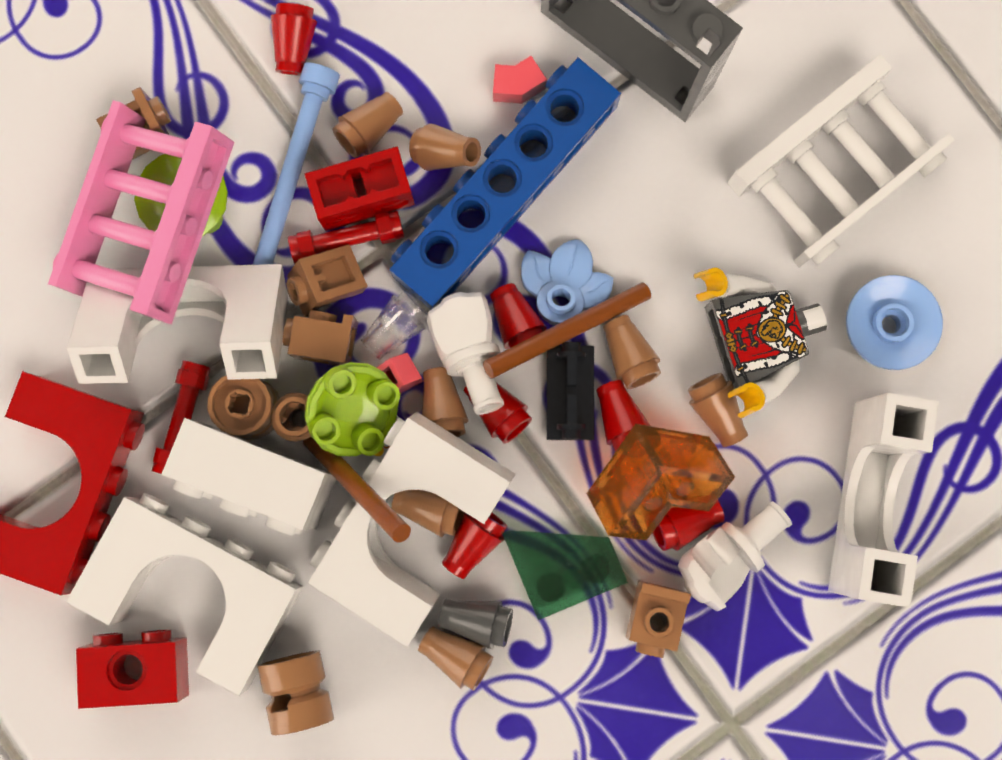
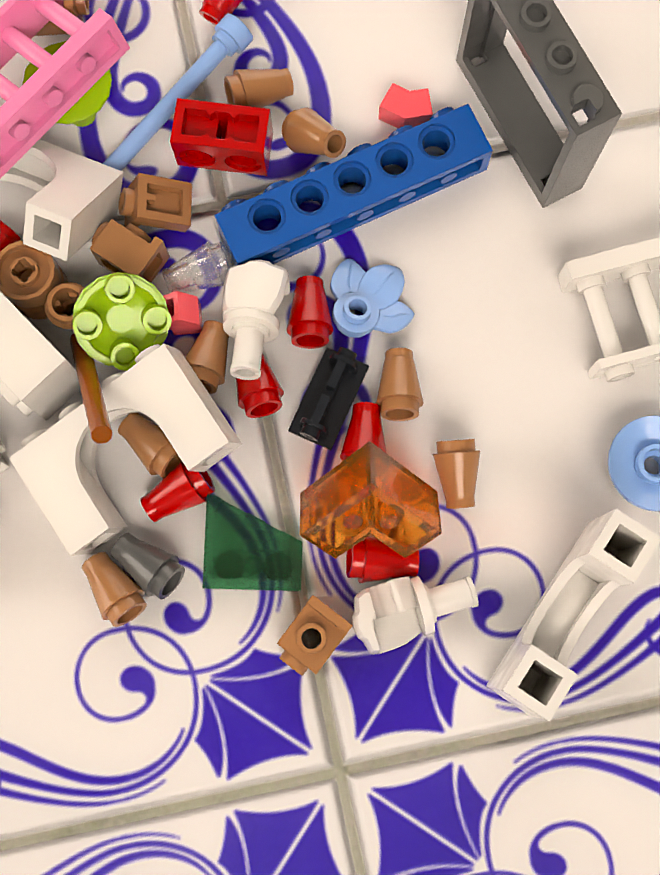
camera: 25 degrees right, 5 degrees down
(386, 228) = (231, 183): red bar -> none
(566, 330) = (348, 337): dark orange bar -> none
(757, 334) = (523, 417): torso -> none

